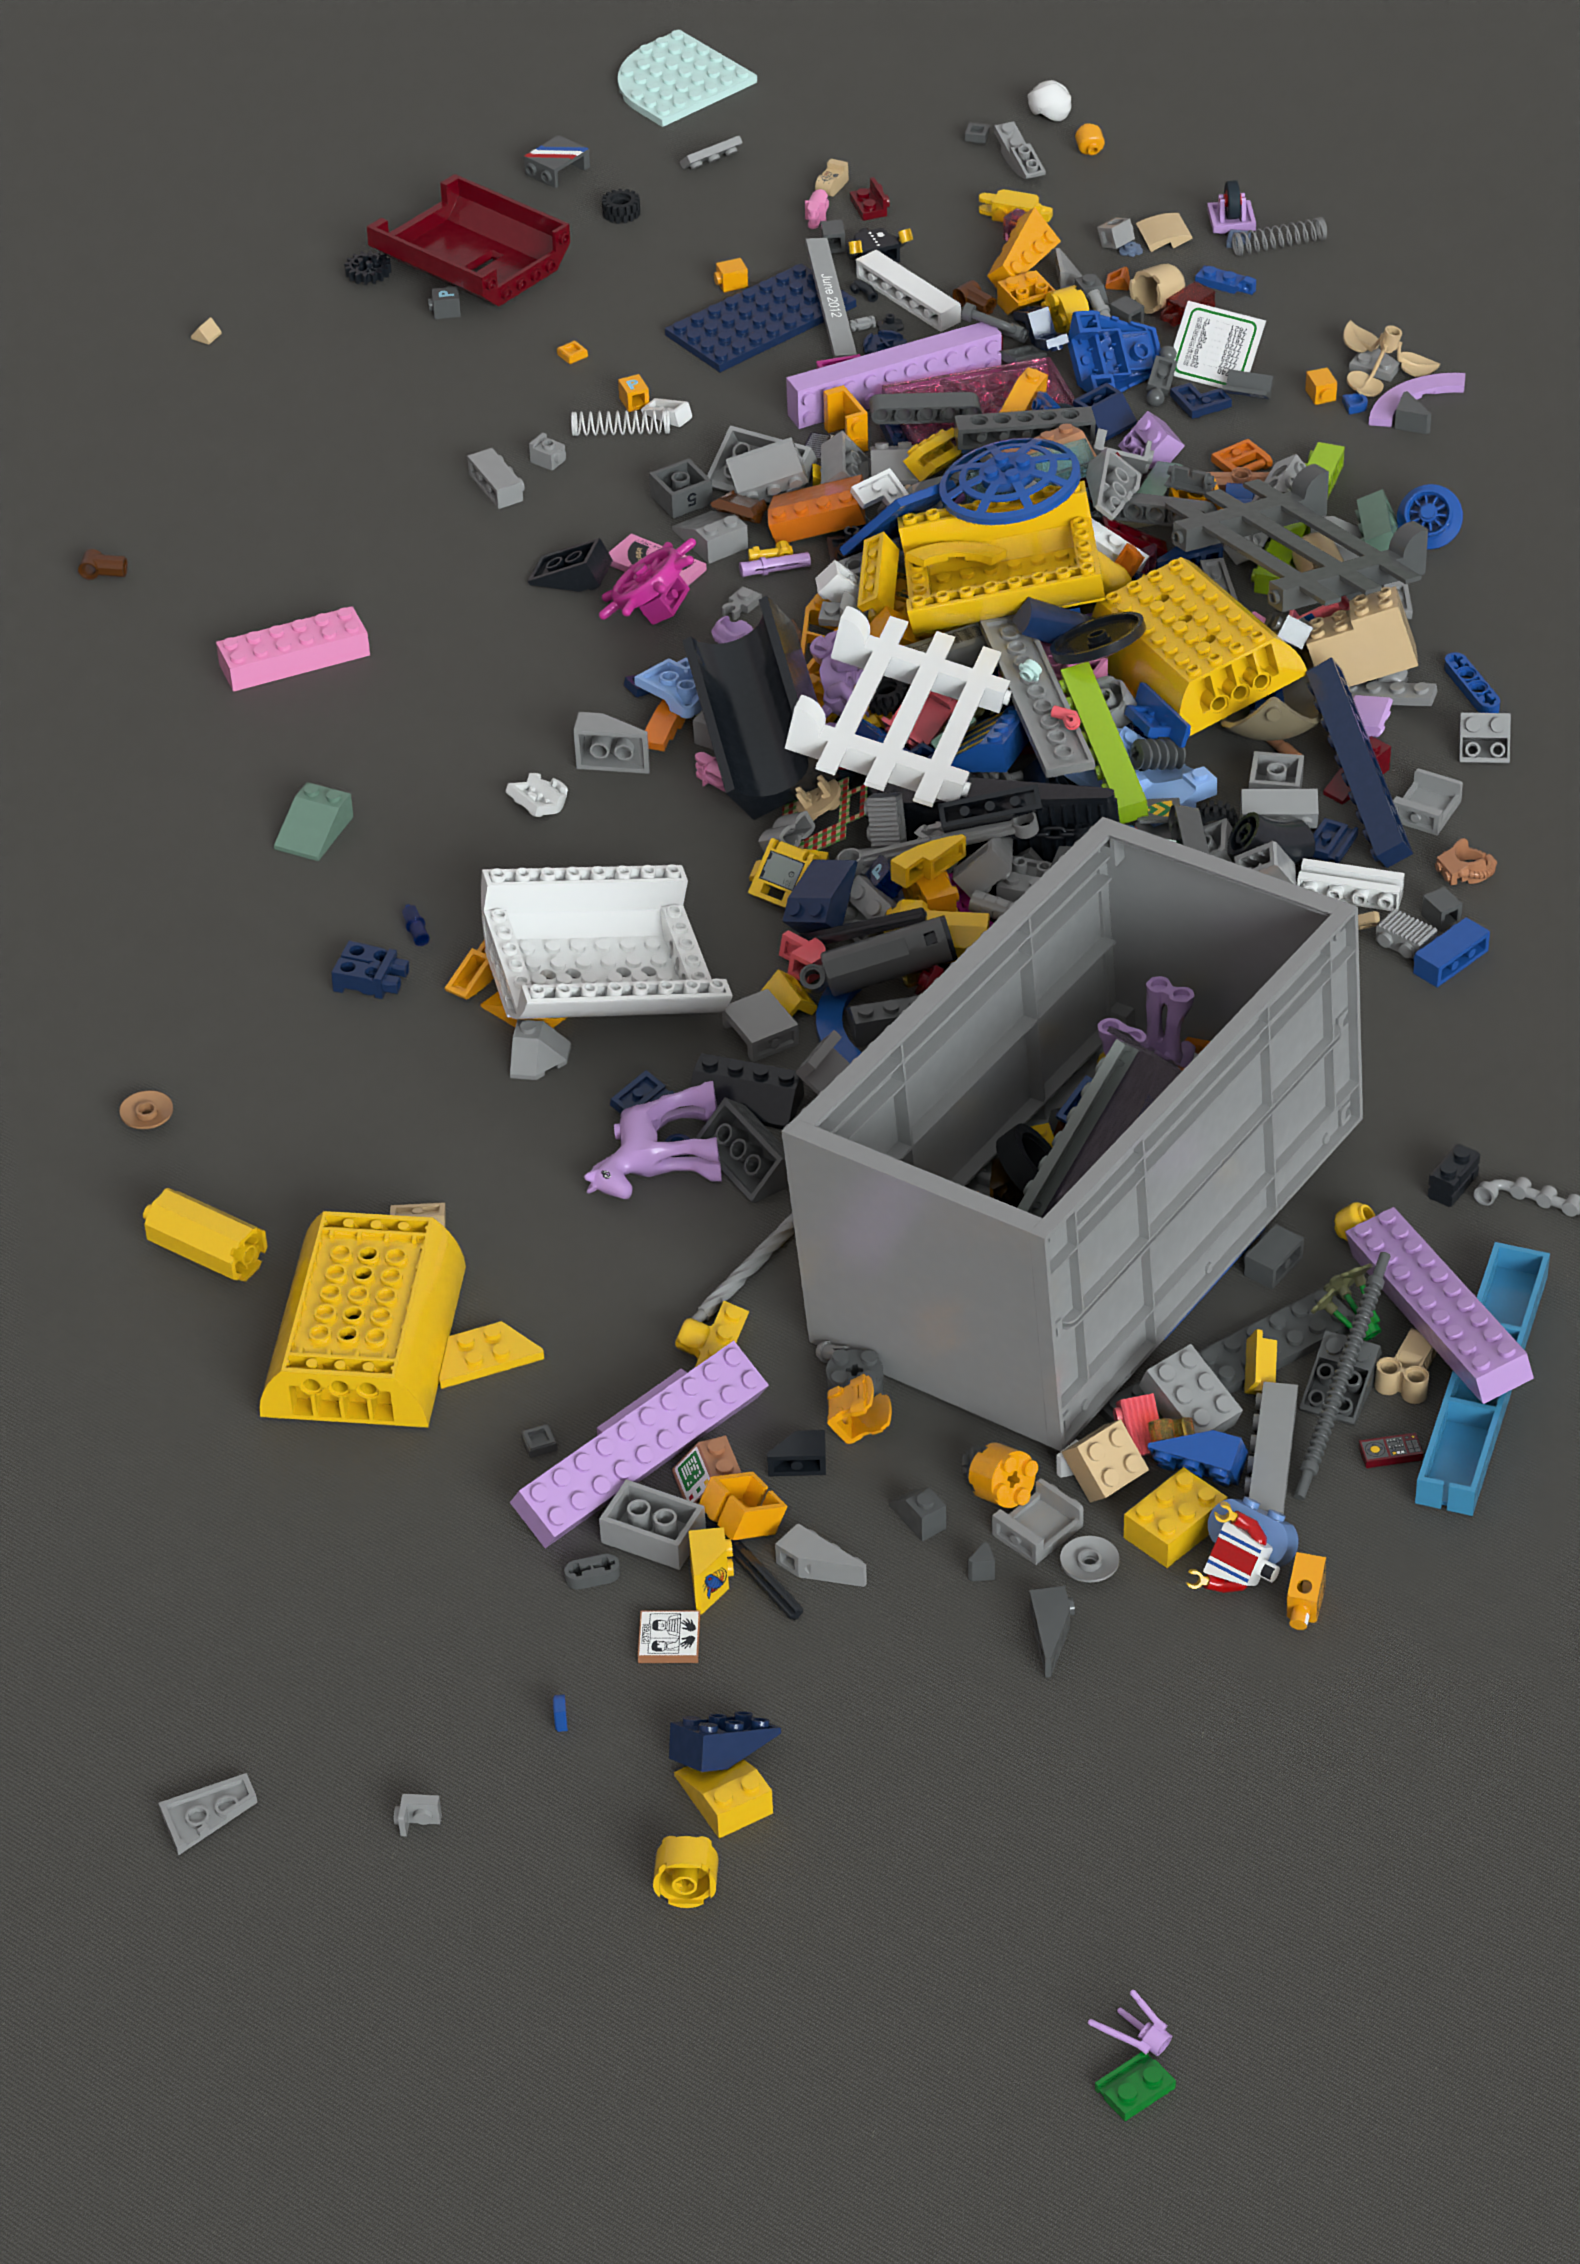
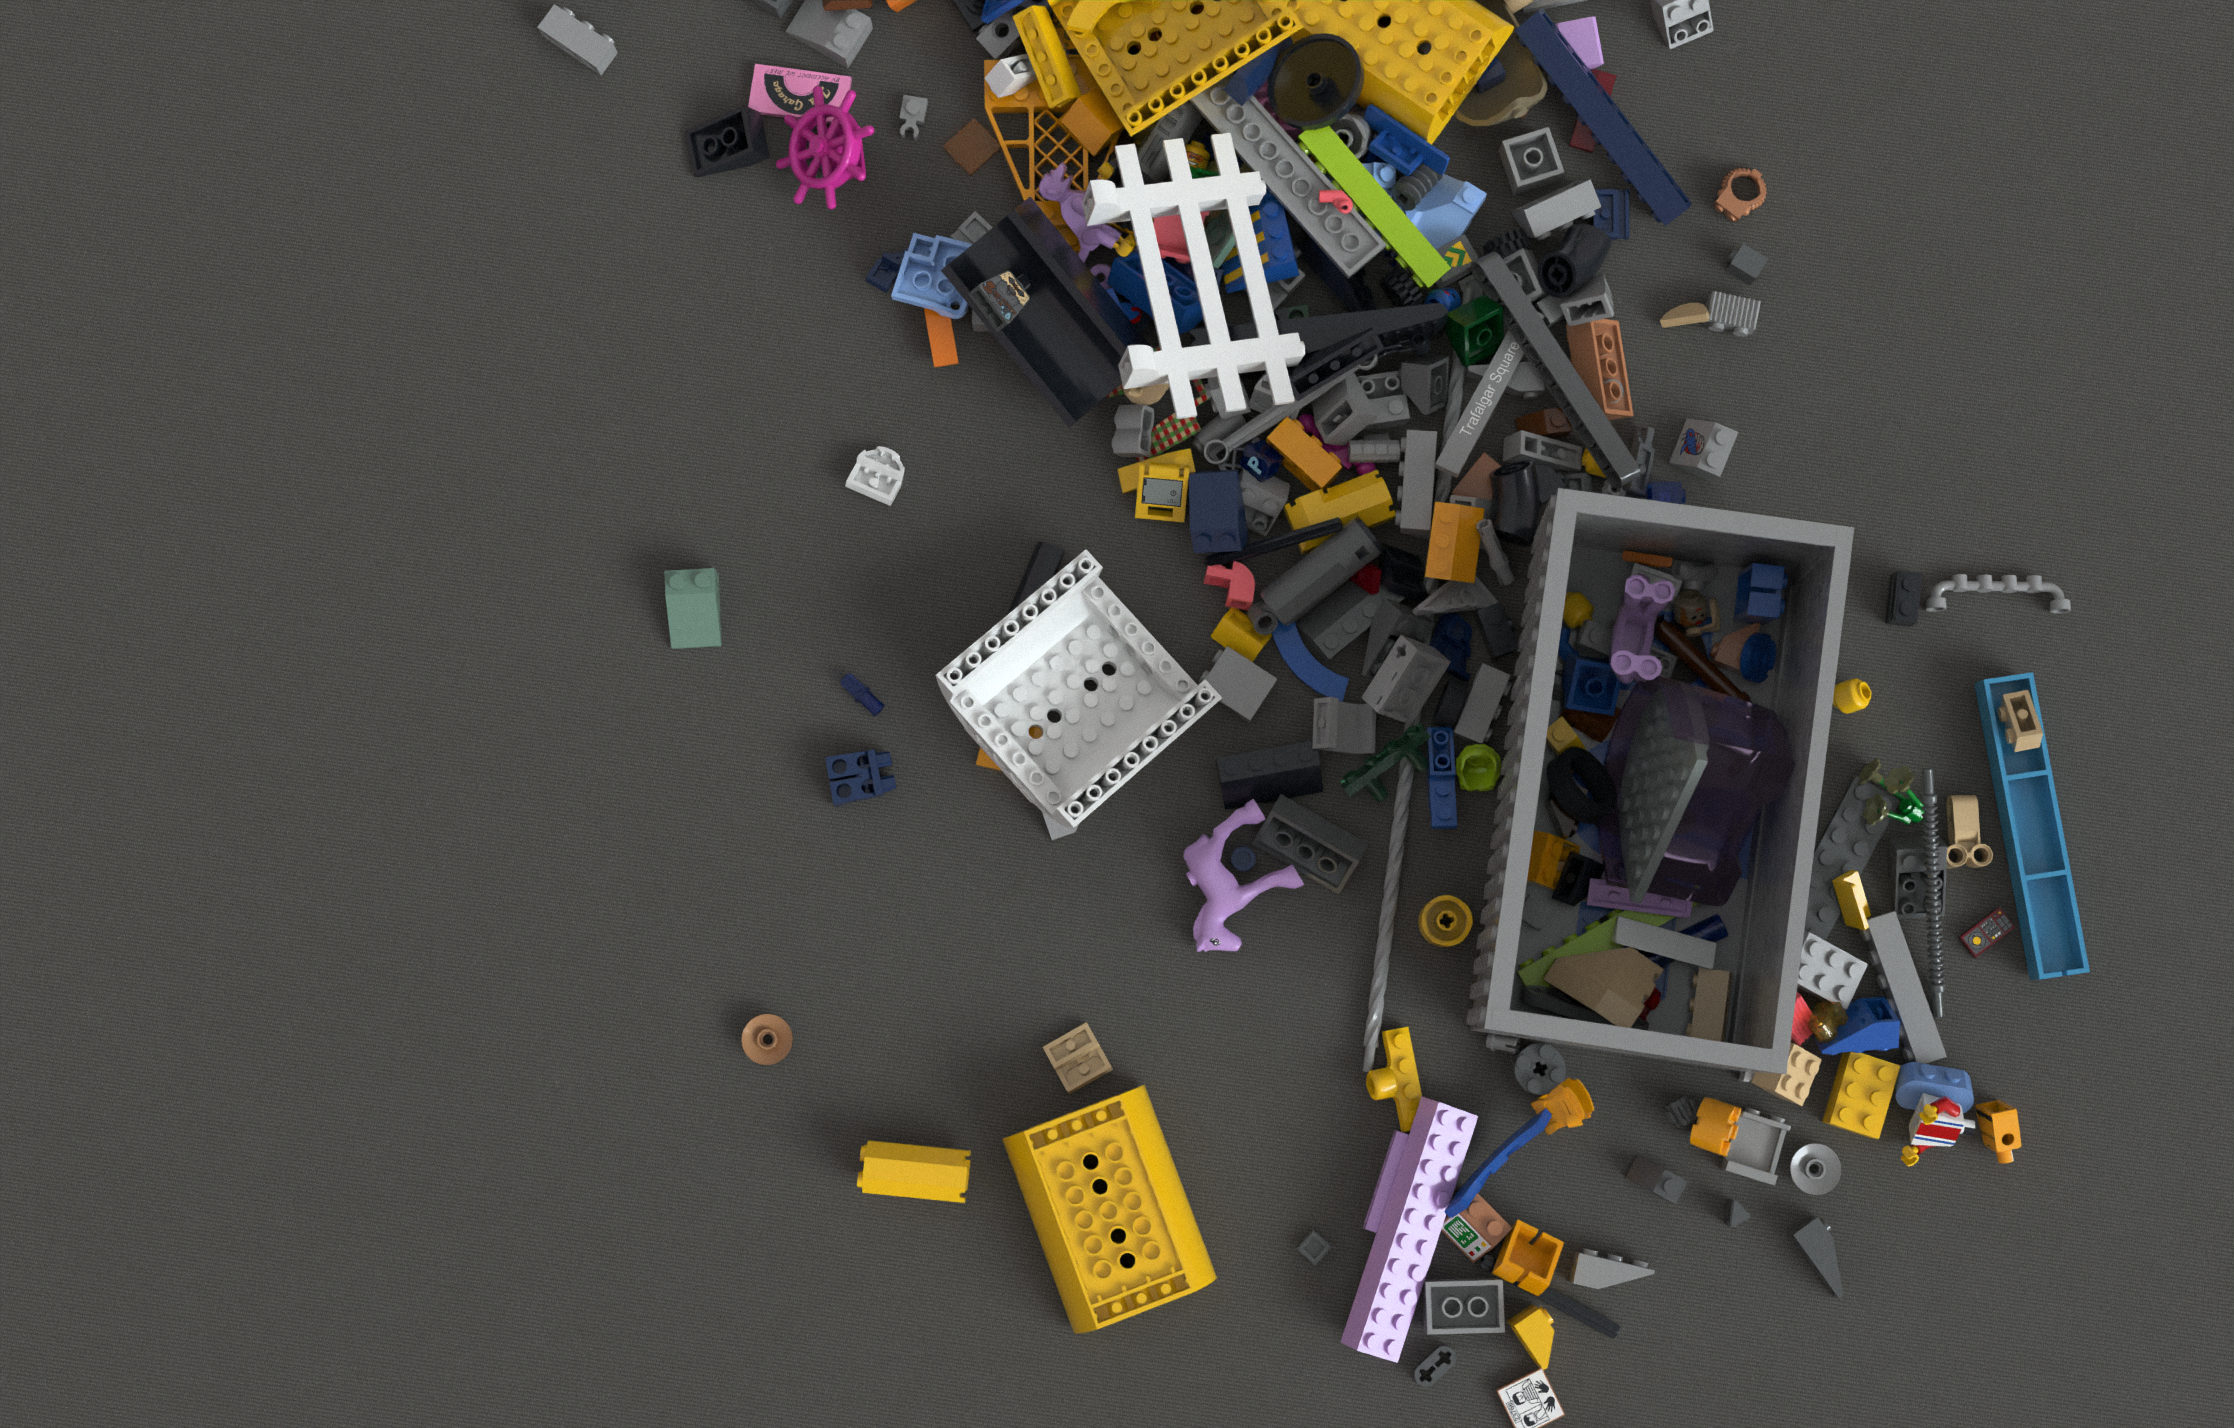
camera: 30 degrees left, 40 degrees up
(95, 564) = (264, 340): reddish brown piece -> none
(292, 648) = (531, 379): bright pink brick -> none
(471, 975) = (951, 739): light orange slope -> none
(485, 1352) = (1215, 1173): yellow wing -> none
(610, 744) = (907, 388): light grey slope -> none
(640, 1091) = (1184, 820): dark blue plate -> none
(708, 770) = (1012, 371): bright pink arm -> none
(722, 673) = (1001, 298): none -> torso
(728, 631) = (936, 173): lavender hair -> none
(764, 566) = (916, 48): lavender pin -> none
(764, 1424) = (1495, 1161): none -> blue tile
(781, 548) = (913, 25): yellow bar -> none
(799, 1455) = (1535, 1166): black slope -> none
(832, 611) = (1028, 109): light grey slope -> none
(927, 860) = (1302, 446): yellow slope -> none
(1030, 670) = (1271, 151): light aqua plate -> none
(1353, 884) = (1655, 268): white brick -> none
(1429, 801) = (1670, 122): light grey panel -> none
(1441, 1306) = (1975, 780): lavender brick -> none
(1451, 952) = (1778, 316): blue brick -> none
(1514, 1283) = (2021, 721): none -> tan brick

